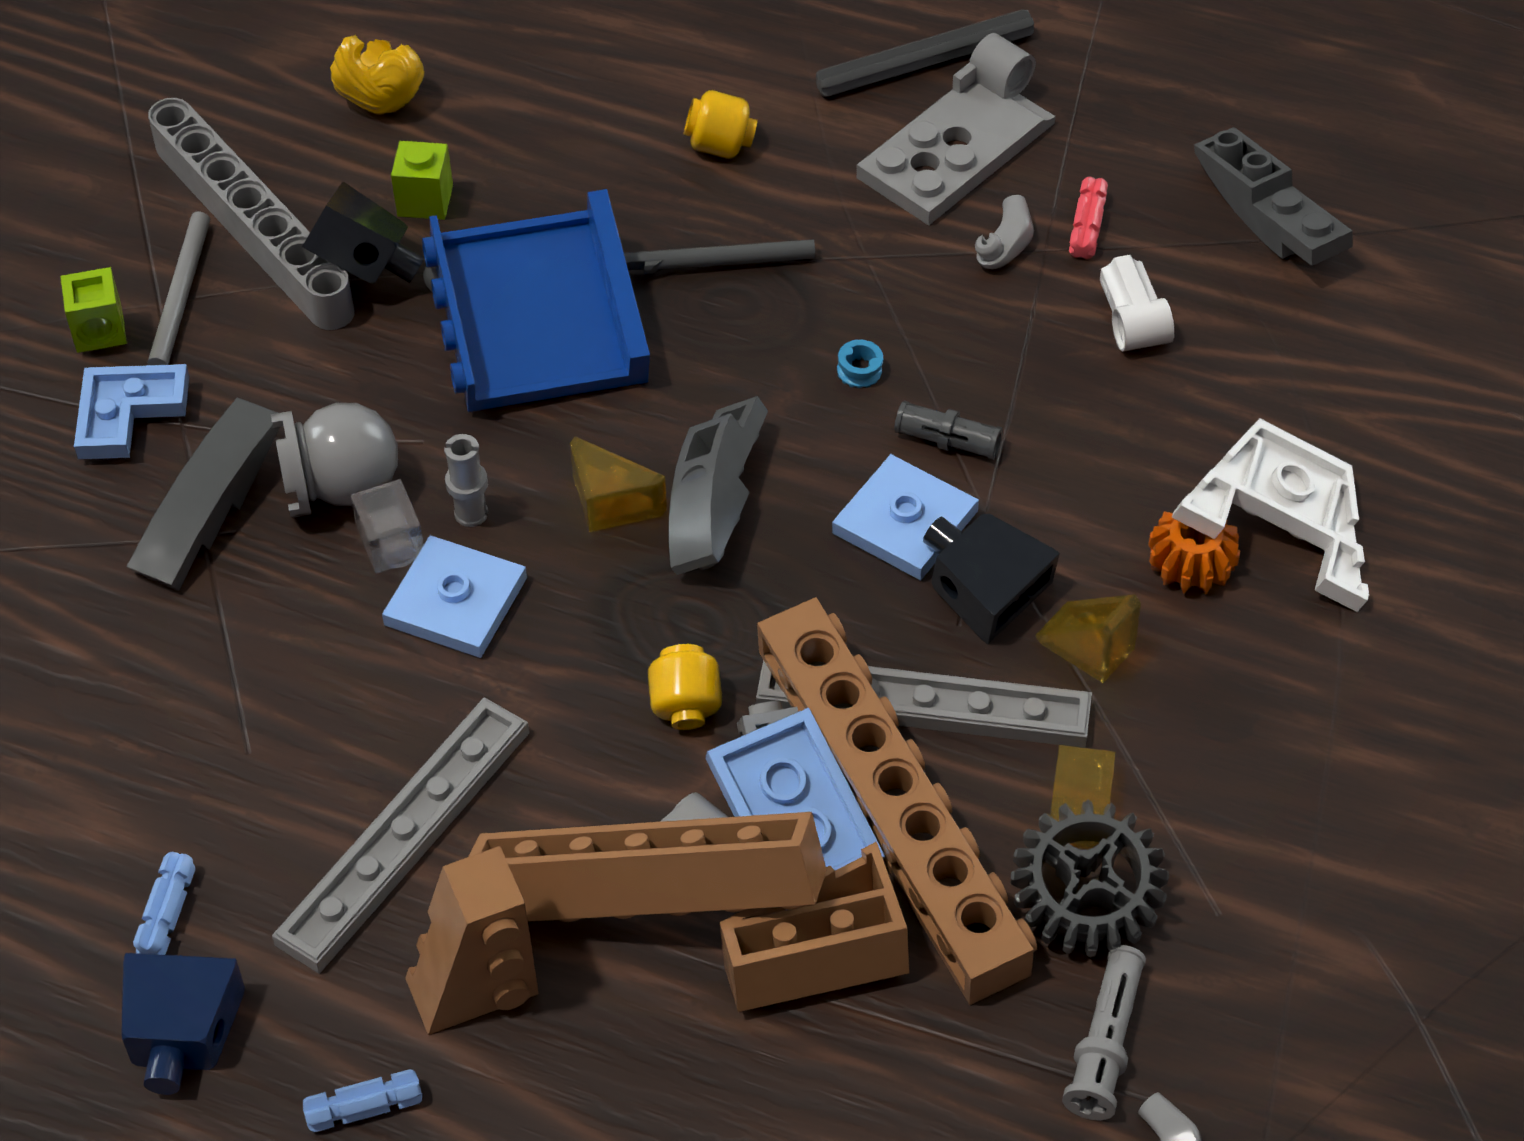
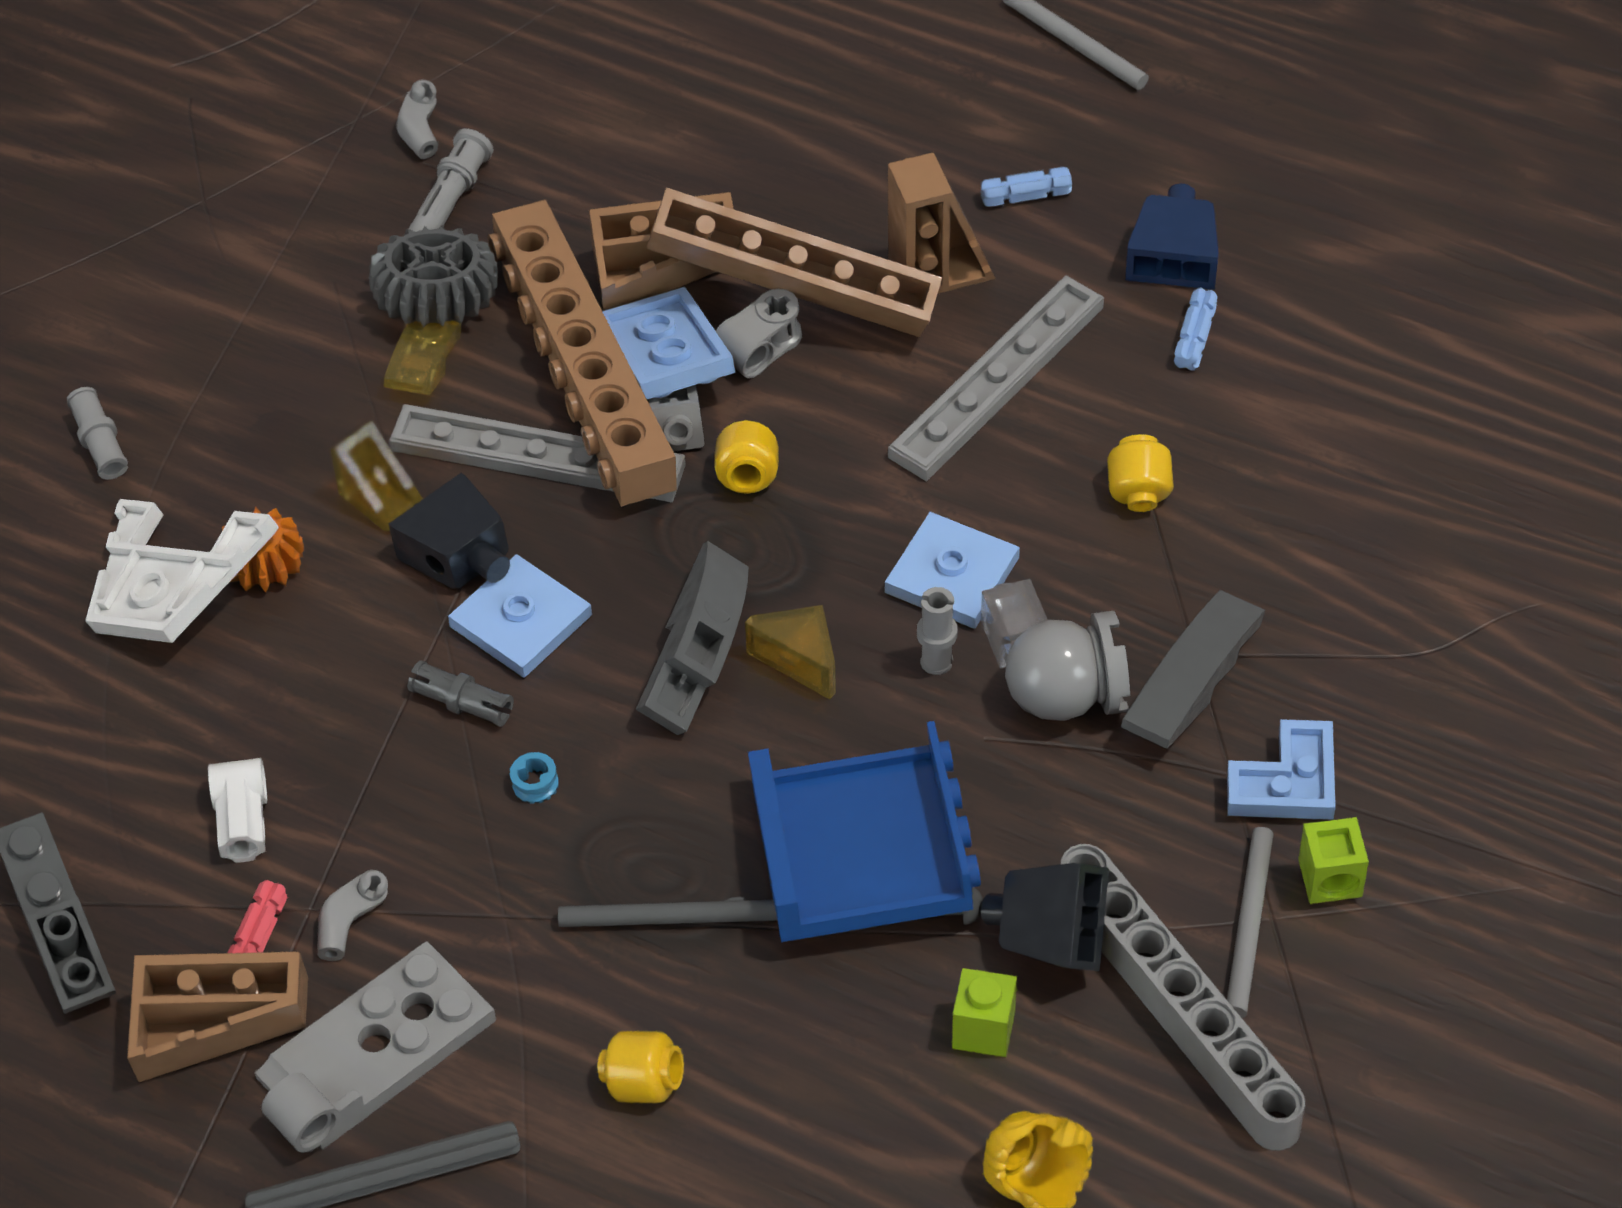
camera: 175 degrees left, 0 degrees up
(244, 698) = (1140, 472): none -> yellow head
(1101, 132) = (210, 1006): none -> medium nougat wedge
(1423, 674) = (97, 433): none -> light grey pin

